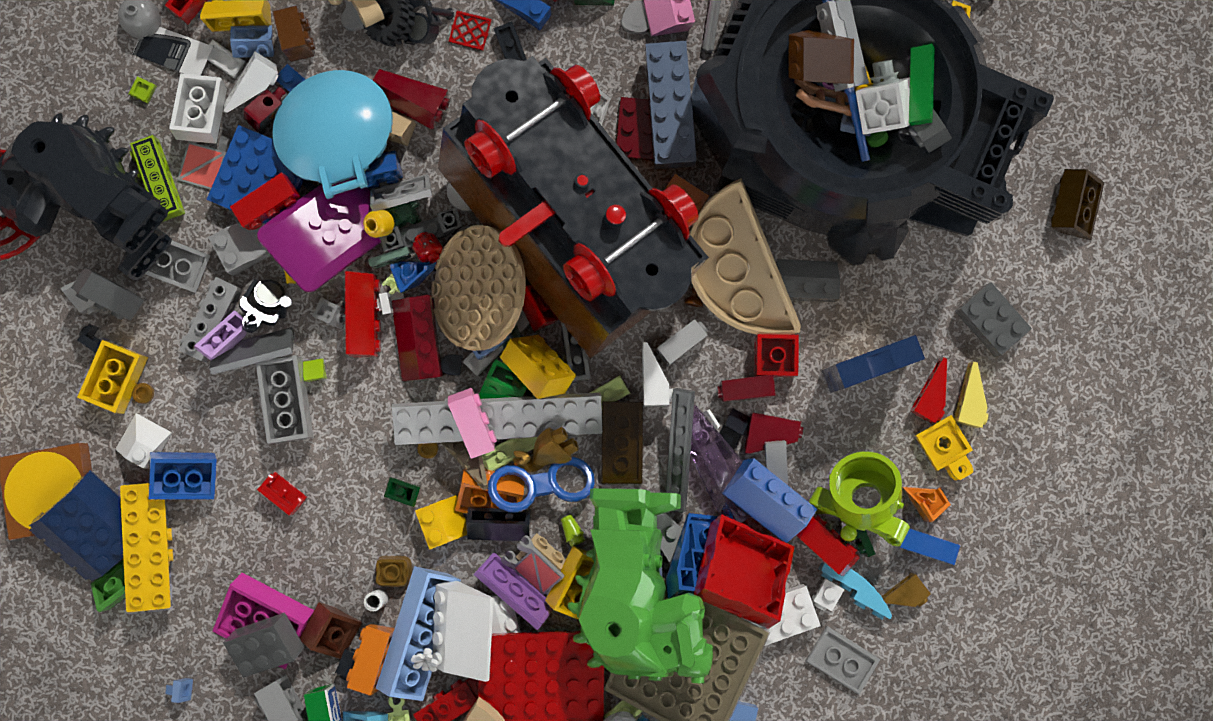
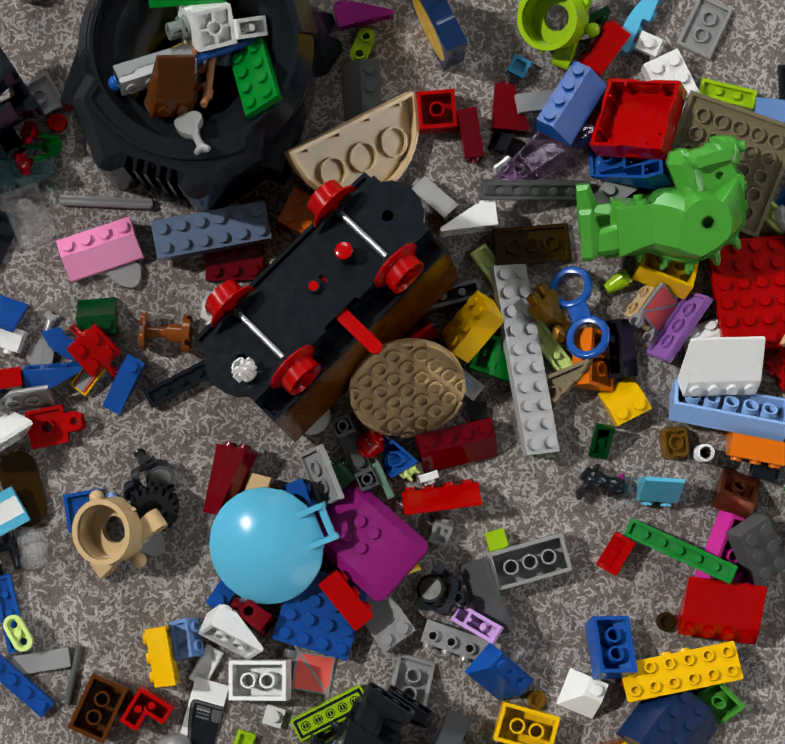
camera: 100 degrees left, 0 degrees up
(161, 121) = (274, 716): none -> white plate
(170, 355) = (498, 673): none -> blue slope
(203, 598) = (721, 610): none -> red slope
(205, 539) = (665, 621): none -> dark brown tile
(272, 563) = (681, 551): none -> green plate
(294, 34) = (177, 597): reddish brown brick -> none
(343, 547) = (659, 490): none -> medium azure slope
(362, 481) = (597, 480): none -> black animal
(378, 223) = (355, 489): yellow head -> none
(425, 661) = (753, 397): white plant -> none
(428, 450) = (560, 423): pearl gold tile -> none
(461, 35) = (156, 418): red window -> none
(472, 422) = (533, 378): bright pink brick -> none
(497, 94) = (243, 369): none -> white gear
(568, 54) = (173, 332): none -> dark orange piece
(765, 676) = (728, 93): none -> lime plate
(774, 73) = (189, 127): none -> light grey piece
(817, 451) = (518, 66): none -> dark azure plate
(822, 150) = (255, 78): none -> green plate
(855, 287) = (363, 45): none -> lime plate
(879, 149) = (250, 27): none -> white slope
(890, 280) = (357, 14): none -> magenta slope

